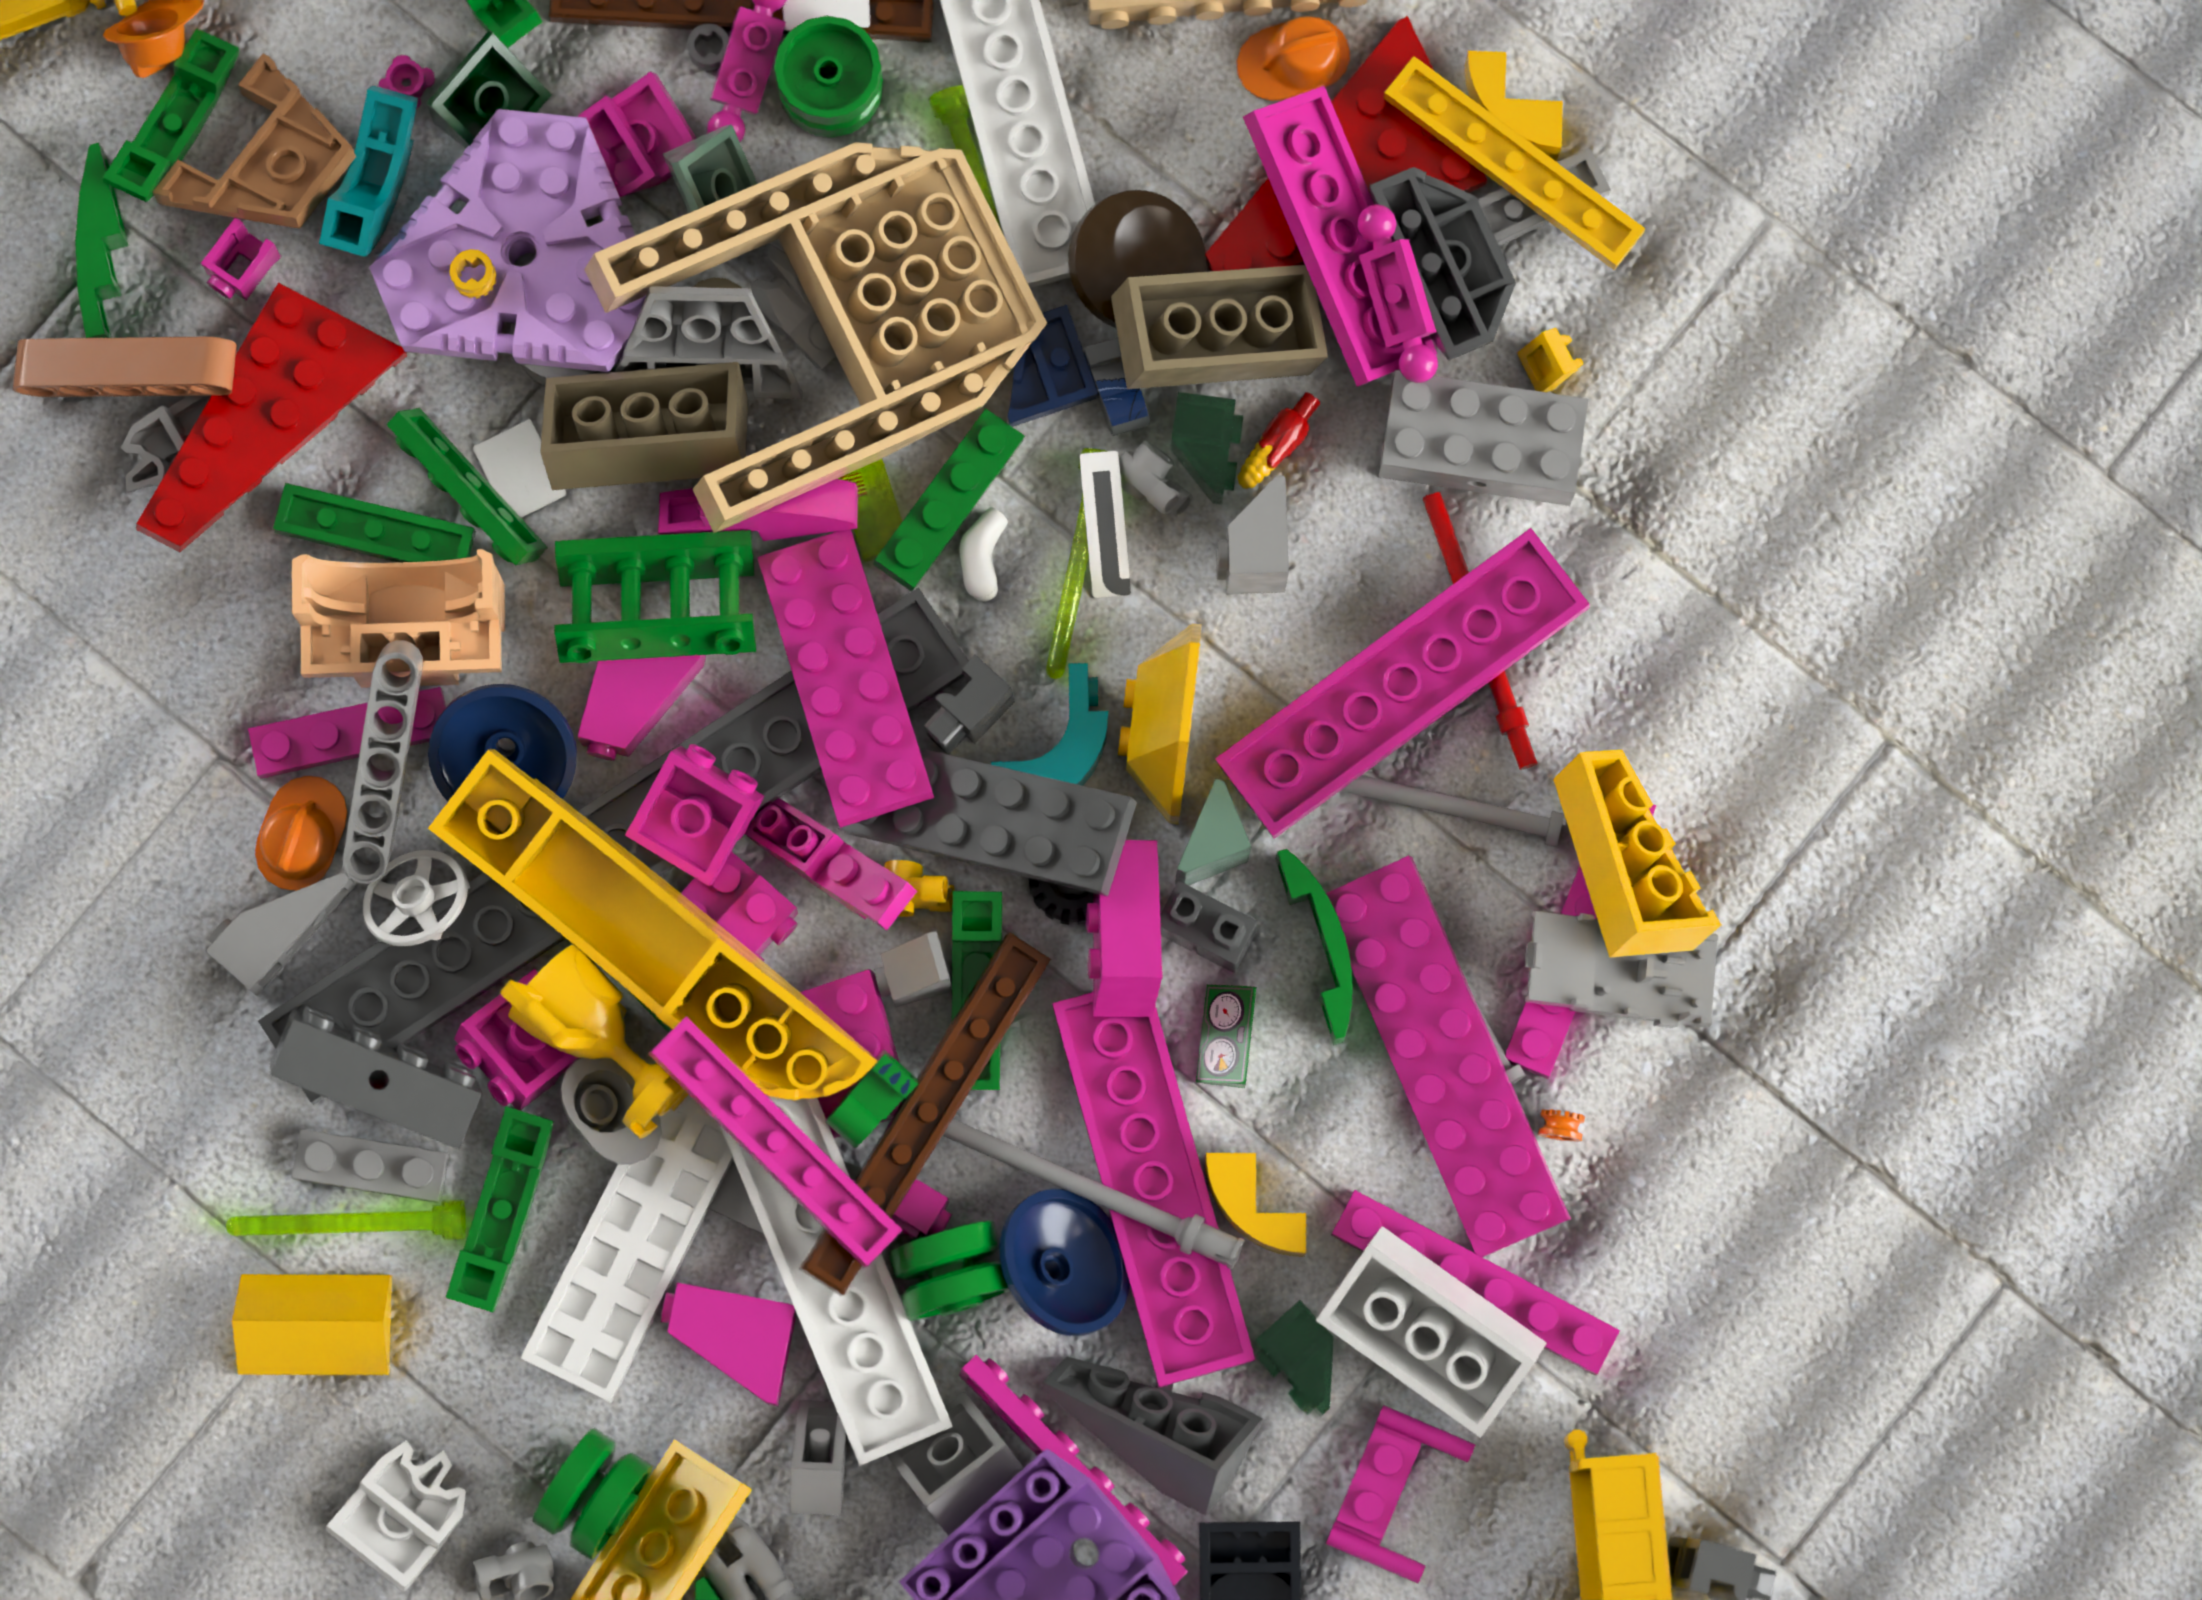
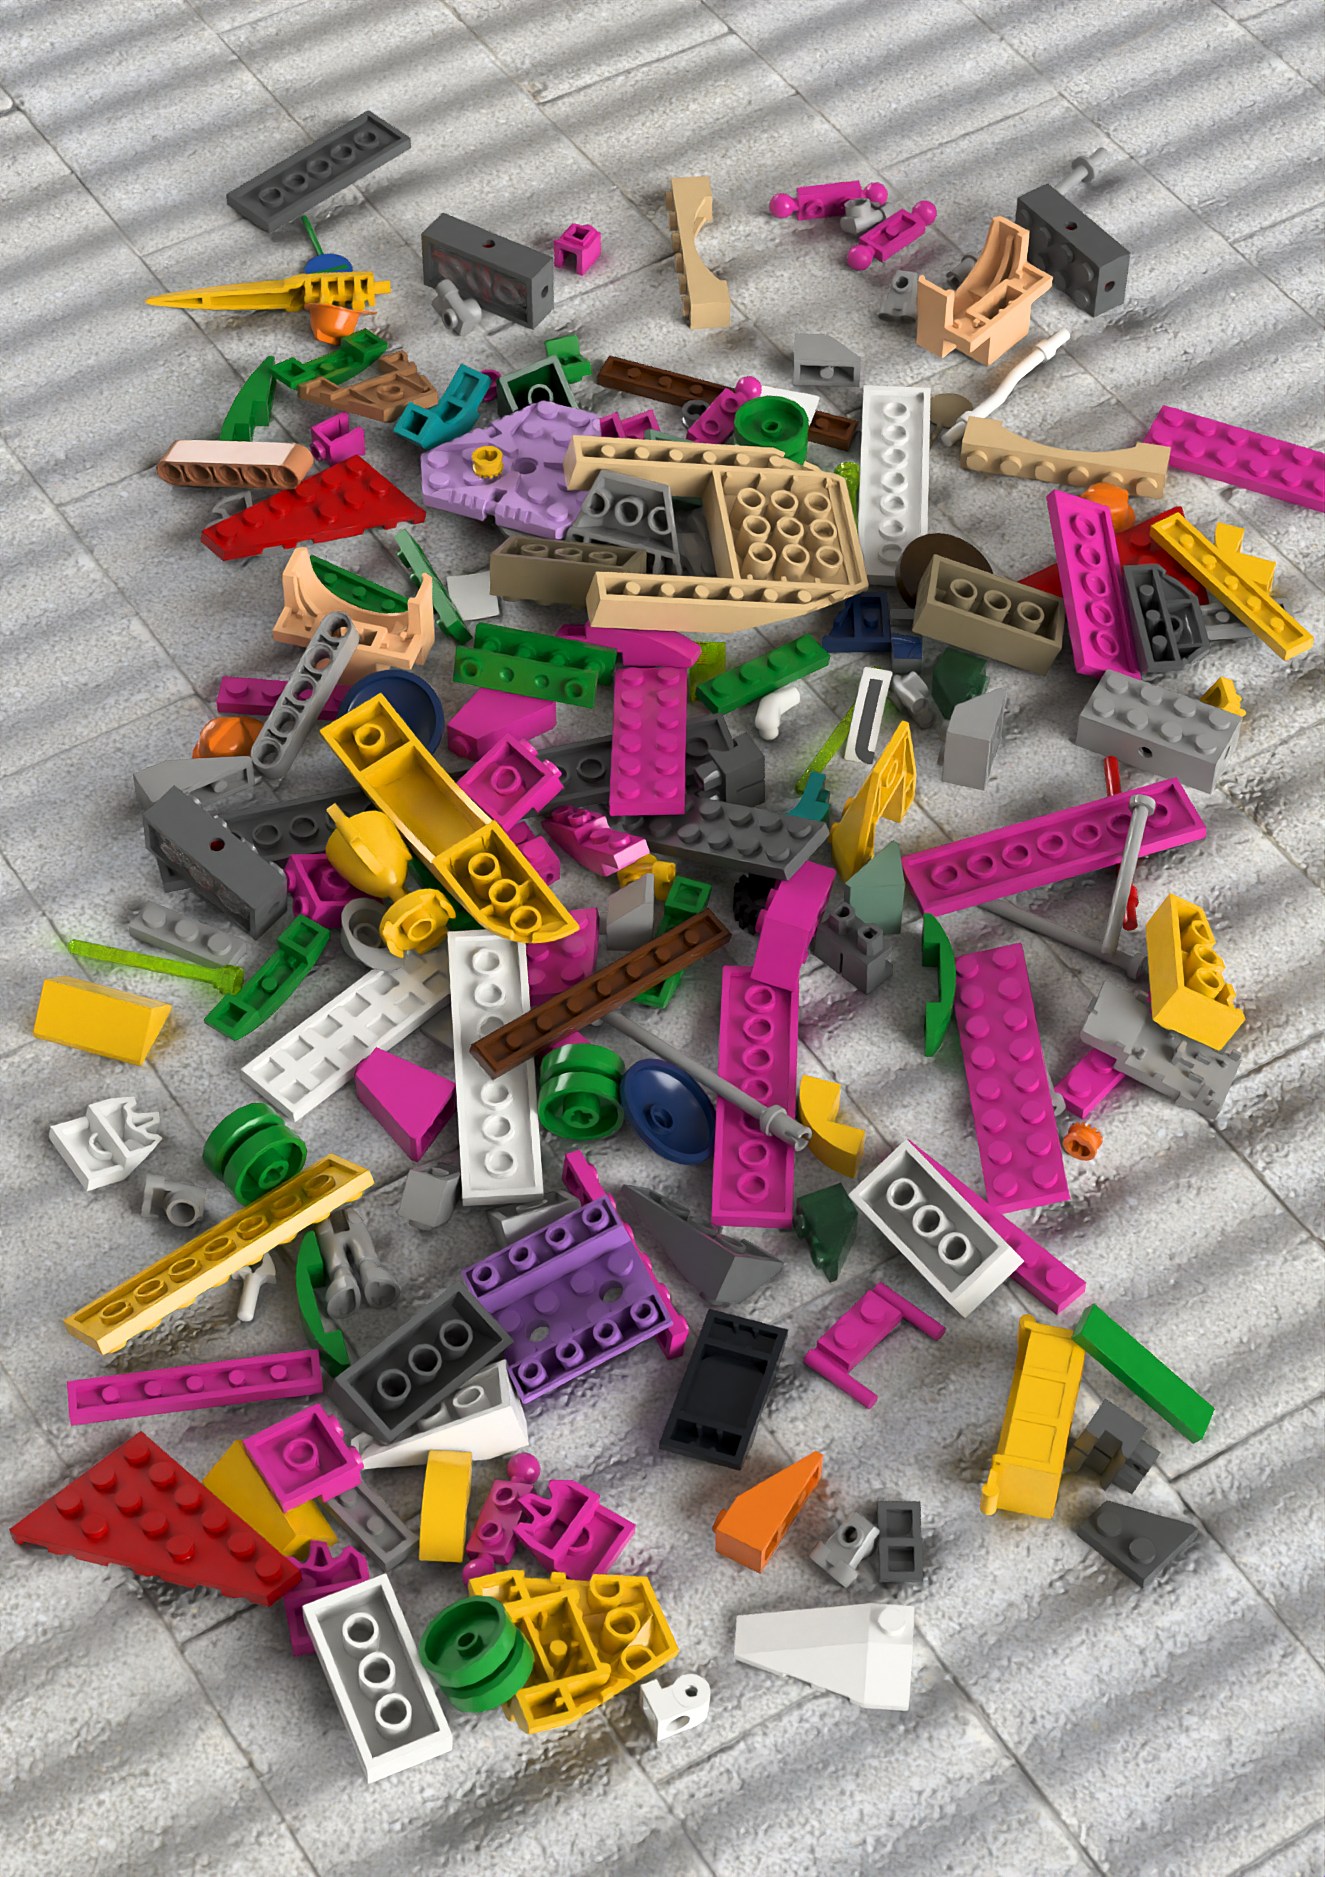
camera: 20 degrees right, 30 degrees down
(415, 899) = (292, 790): white wheel -> none
(775, 1142) = (485, 954): dark pink plate -> none
(871, 1099) = (567, 963): green leg -> none
(1226, 1035) = (846, 1024): slope -> none
(1278, 440) = (1022, 697): red piece -> none
(1397, 293) = (1122, 621): dark pink plate -> none
(1509, 710) = (1141, 807): none -> light grey bar
(1726, 1465) = (1143, 1373): none -> green tile

